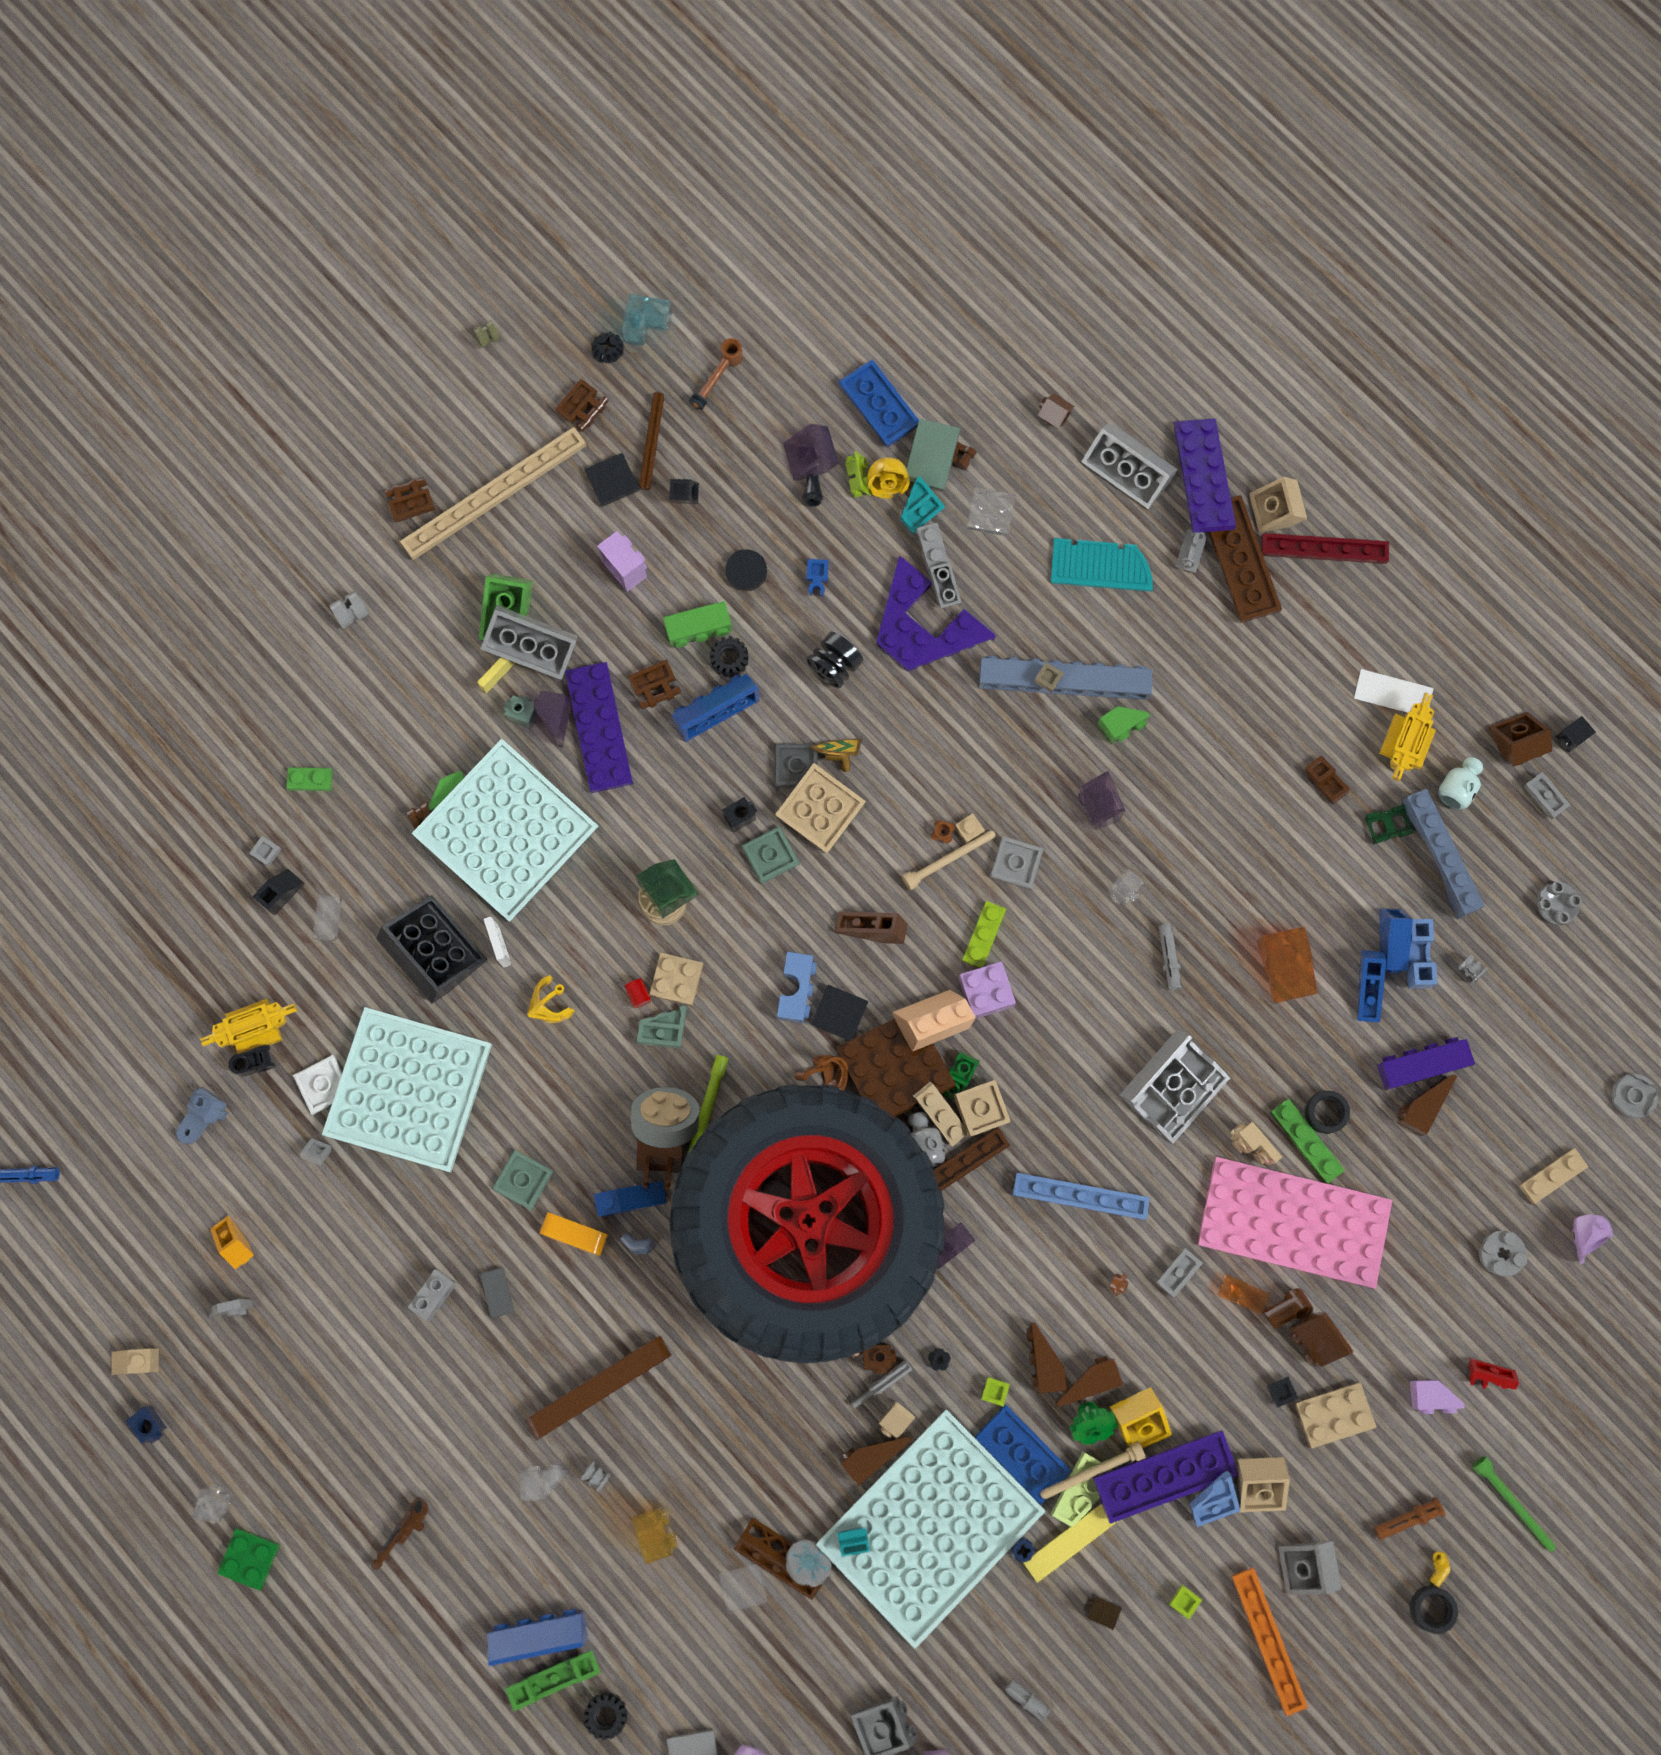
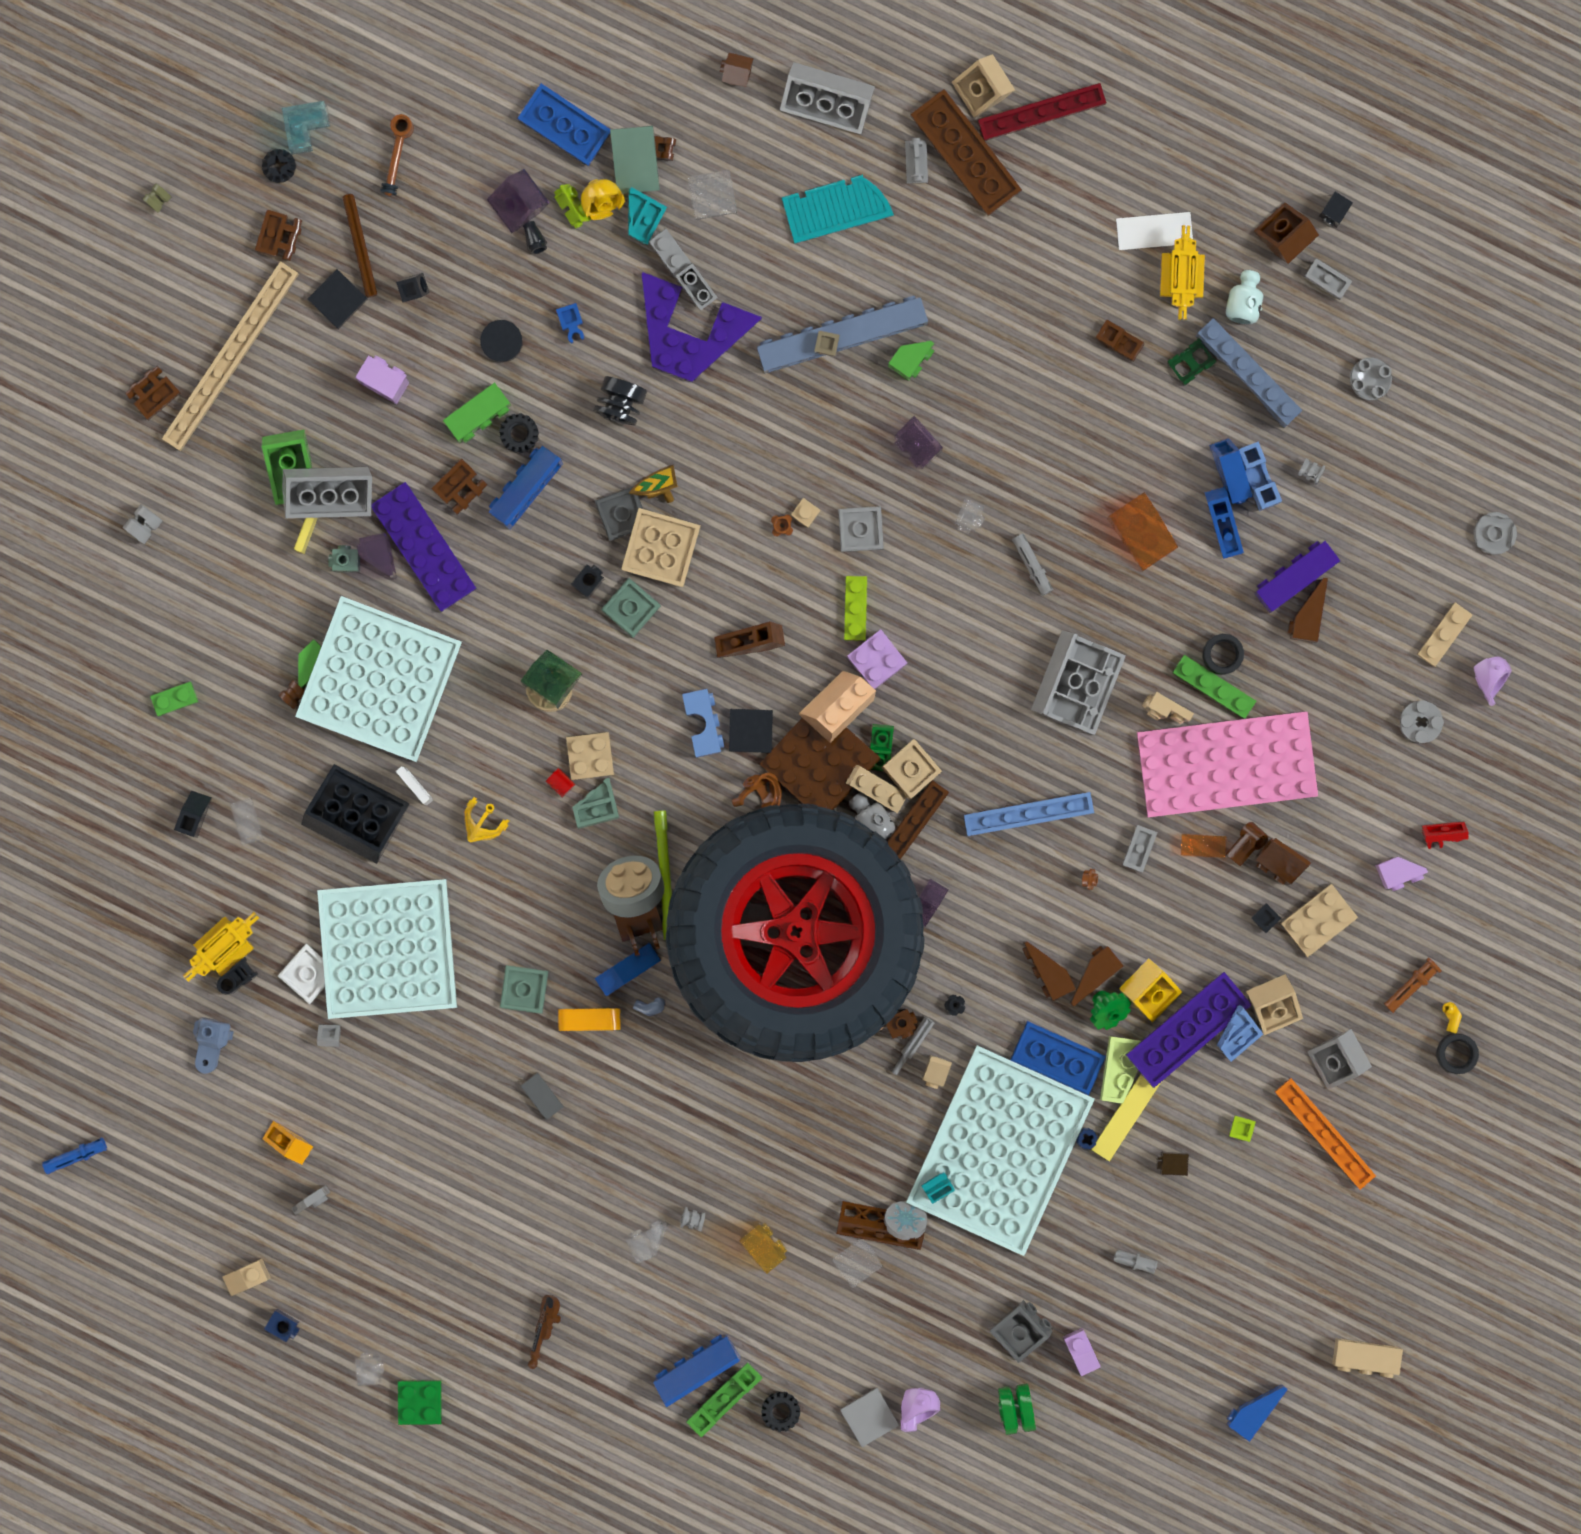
camera: 20 degrees left, 10 degrees up
(265, 851) = (163, 782): light grey plate -> none
(432, 1295) = (486, 1120): light grey brick -> none
(598, 1388) = (665, 1143): reddish brown beam -> none
(869, 1458) = (924, 1114): reddish brown slope -> none
(913, 879) = (770, 582): tan piece -> none
(995, 1391) = (1014, 1013): lime plate -> none
(1133, 1453) = (1154, 1019): tan piece -> none
(1204, 475) = (902, 82): dark purple plate -> none
(1484, 1467) = (1463, 916): bright green piece -> none

